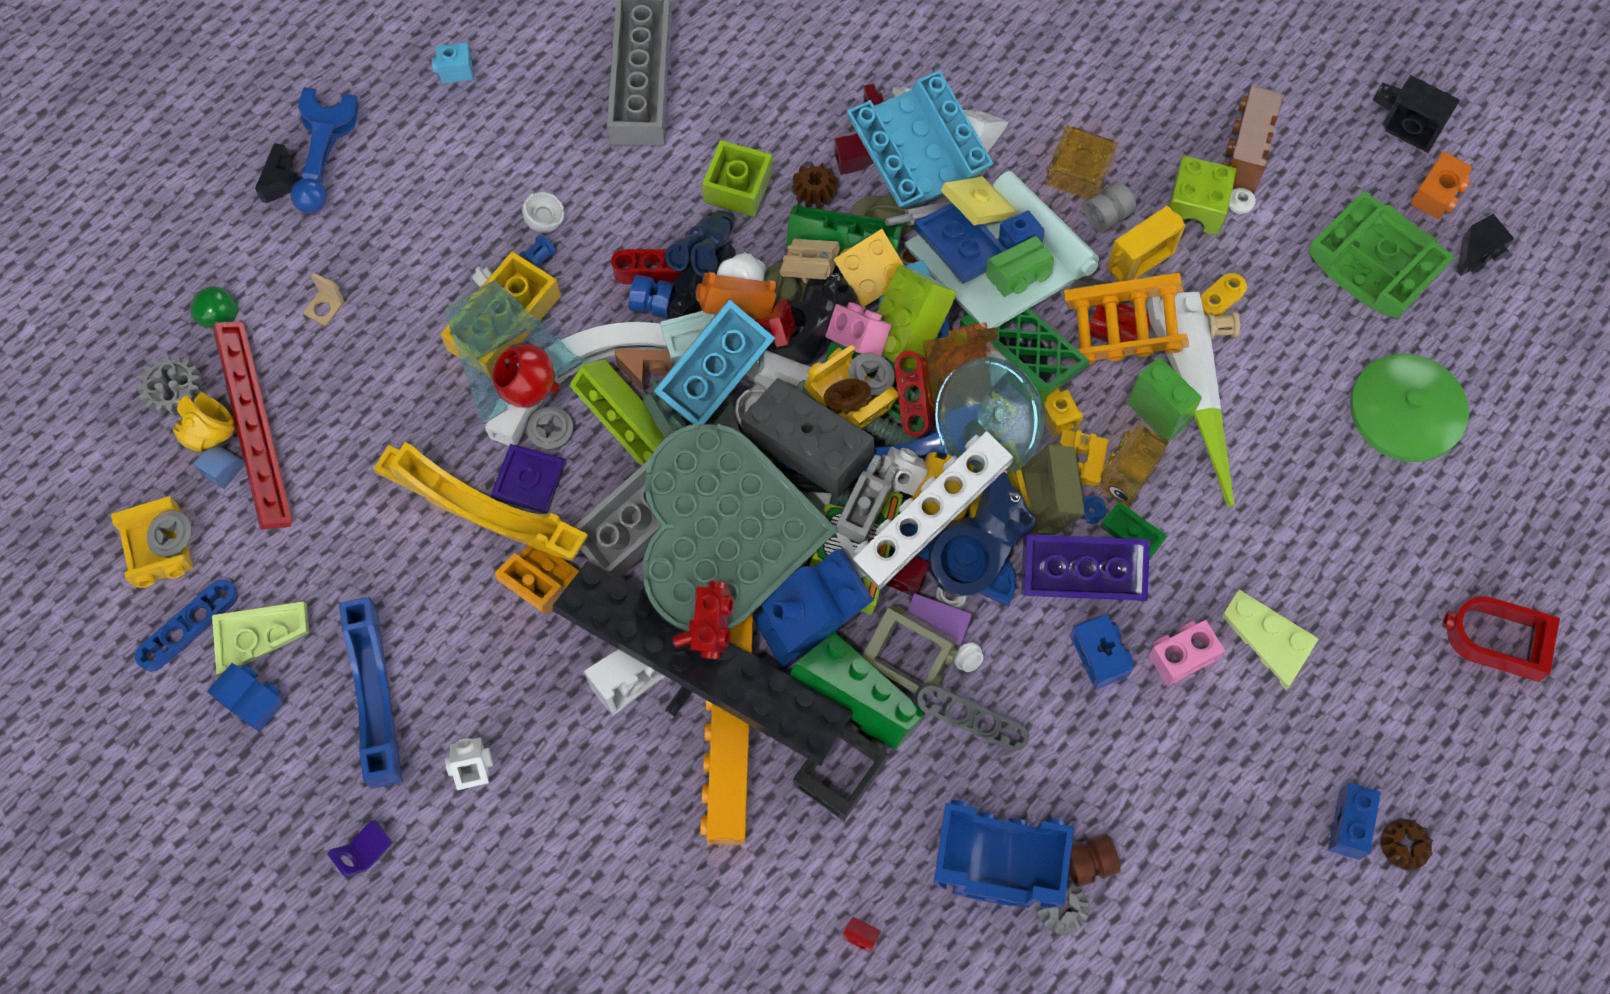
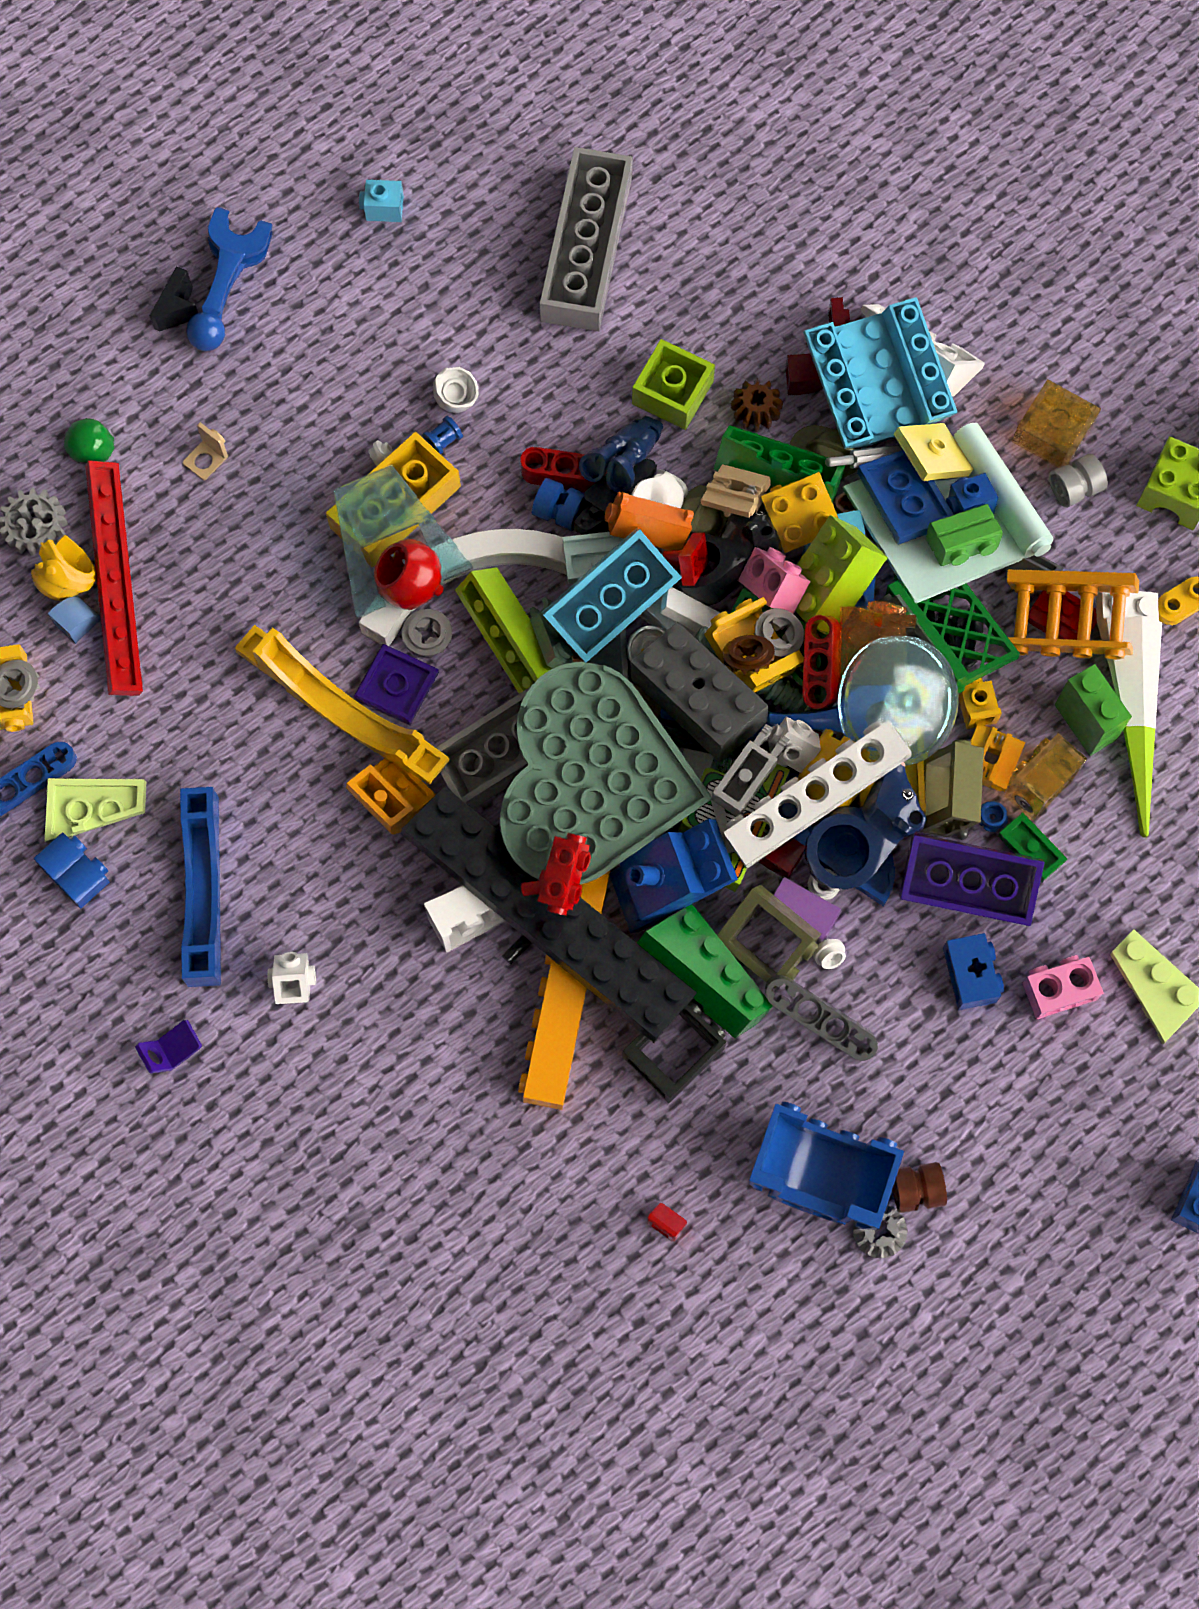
camera: 10 degrees right, 5 degrees up
(637, 362) = (531, 575): nougat slope -> none
(1146, 245) = (1108, 532): yellow window -> none
(1224, 325) = (1177, 635): tan bush -> none

